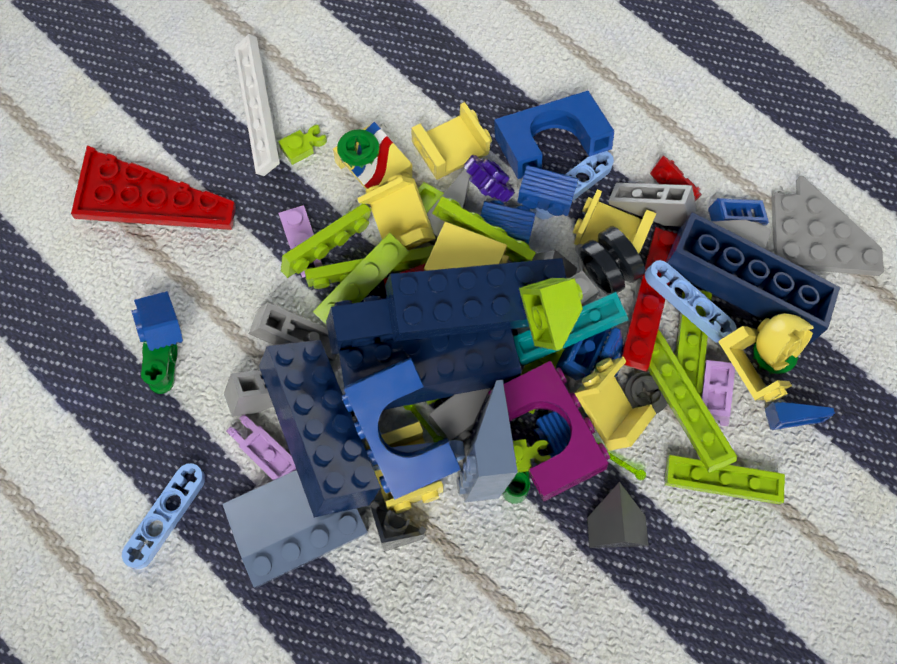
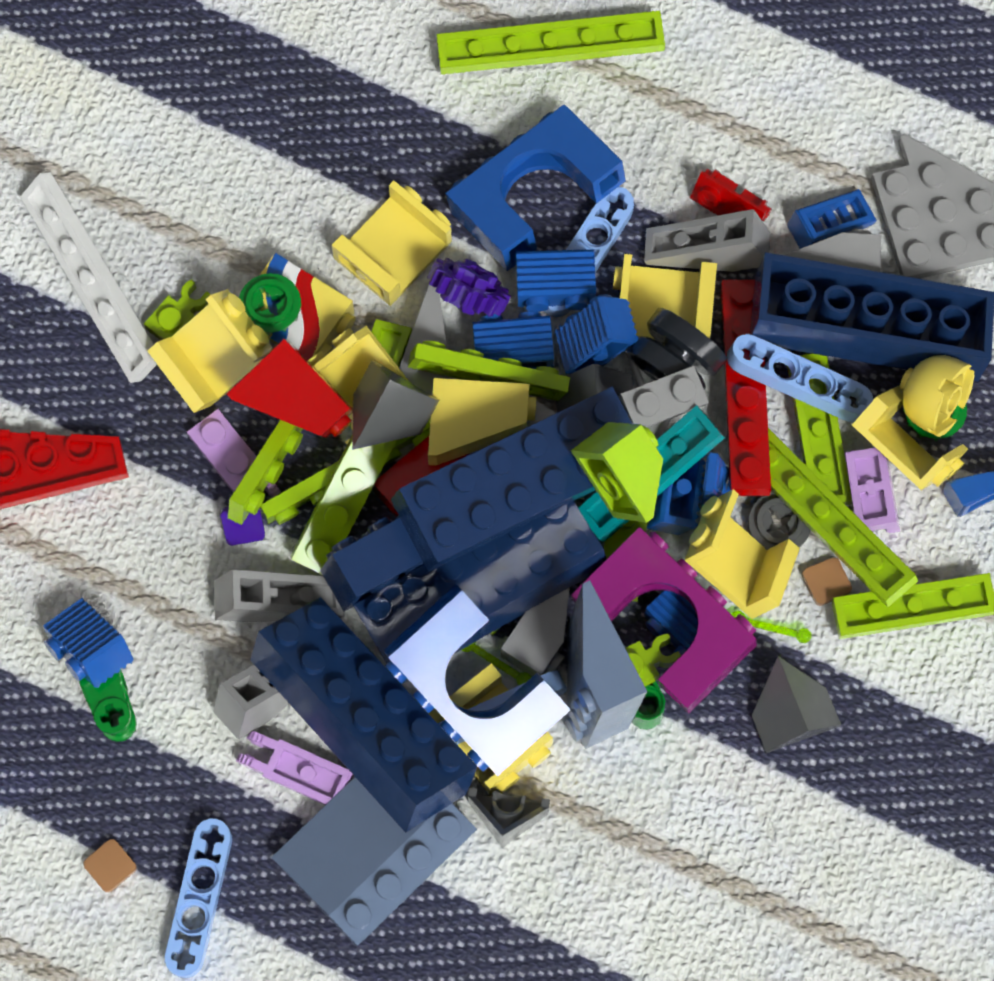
camera: 15 degrees left, 5 degrees up
(115, 473) = (110, 865): none -> medium nougat piece
(293, 285) = (249, 531): none -> dark purple piece
(311, 167) = (212, 351): none -> light yellow panel
(350, 202) = (294, 392): none -> red slope
(408, 231) = (388, 408): none -> dark grey slope
(563, 230) = (596, 333): none -> blue brick
(591, 56) = (550, 42): none -> lime plate
(598, 280) = (664, 398): none -> light grey plate
(667, 443) = (826, 581): none -> medium nougat piece

